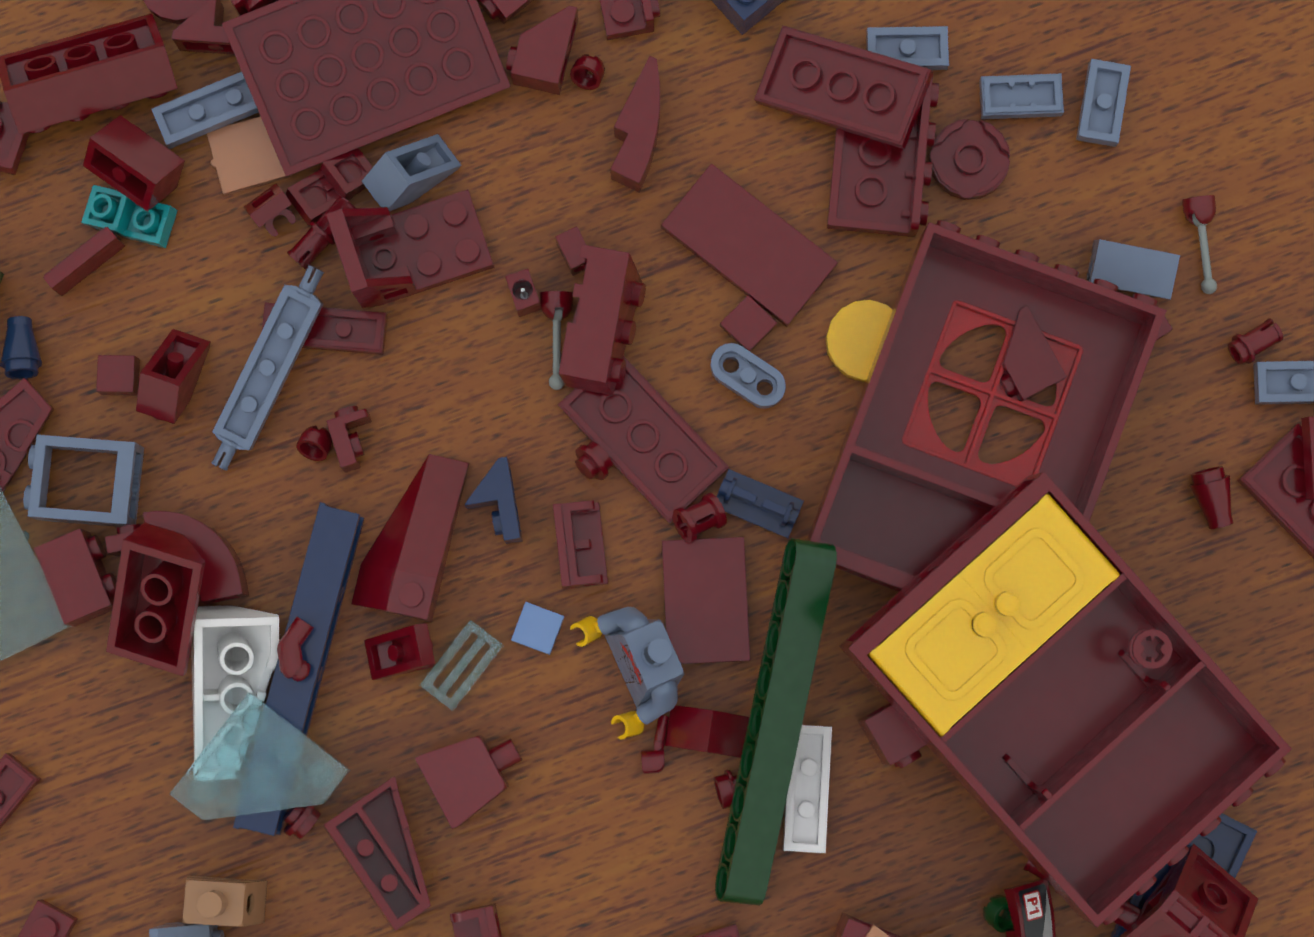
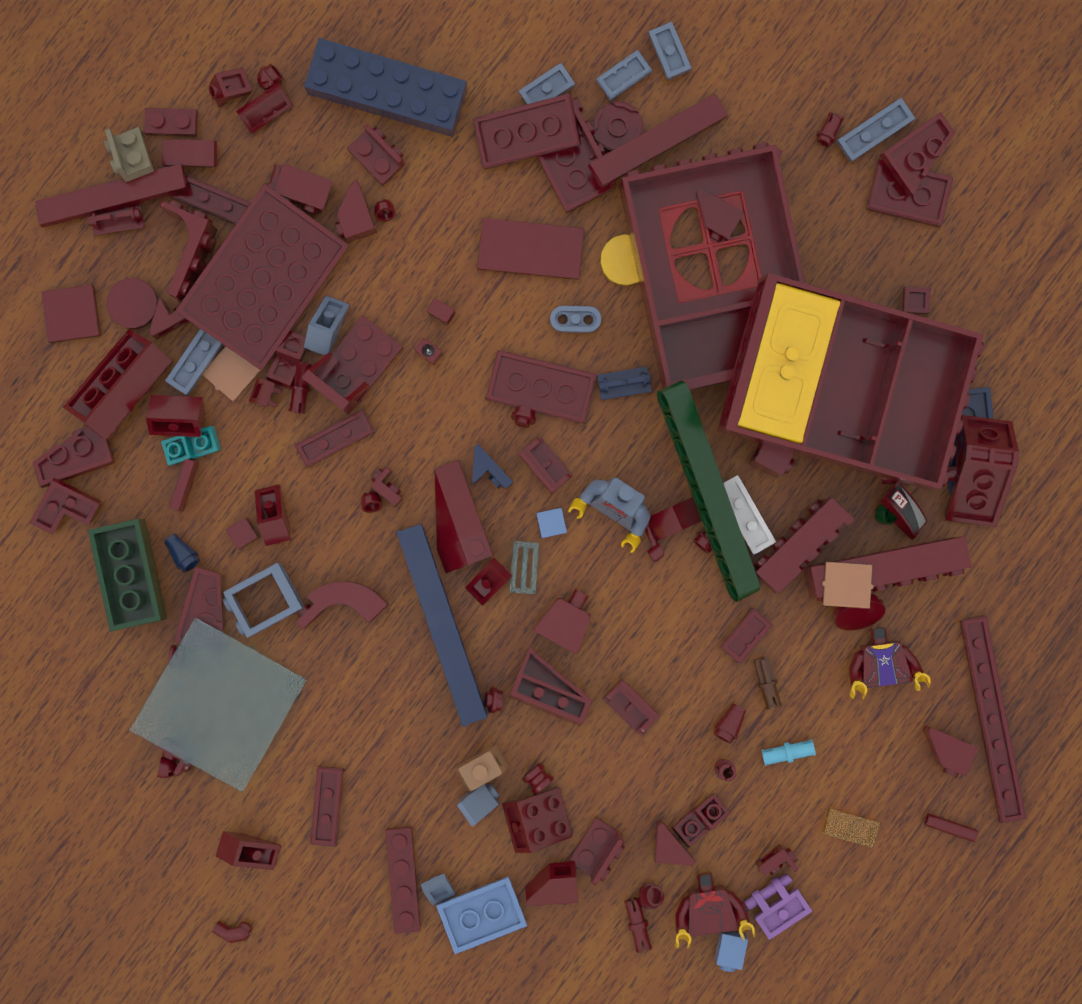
camera: 30 degrees left, 5 degrees up
(77, 576) = (294, 652): dark red brick -> none
(156, 599) = (346, 636): dark red slope -> none
(230, 657) = (407, 649): white wedge -> none
(258, 767) = (456, 687): clear light blue plate -> none
(267, 367) = (320, 478): sand blue plate -> none
(290, 653) = (432, 618): dark red arm -> none
(556, 306) = (451, 347): hinge -> none
(602, 321) = (481, 340): dark red wedge -> none
(638, 129) = (432, 223): dark red slope -> none
(699, 517) = (599, 410): dark red bush -> none
(706, 599) = (629, 450): dark red tile -> none
(748, 324) = (557, 291): dark red tile -> none
(859, 879) = (802, 544): none -> dark red wedge
(1011, 208) = (657, 140): none -> dark red tile
(1134, 268) = (741, 131): sand blue hinge -> none
(1164, 648) = (886, 324): dark red bush -> none
(1200, 212) = (758, 78): hinge -> none
(1213, 495) = (858, 225): dark red cone -> none
(1229, 646) = (916, 300): none -> dark red plate

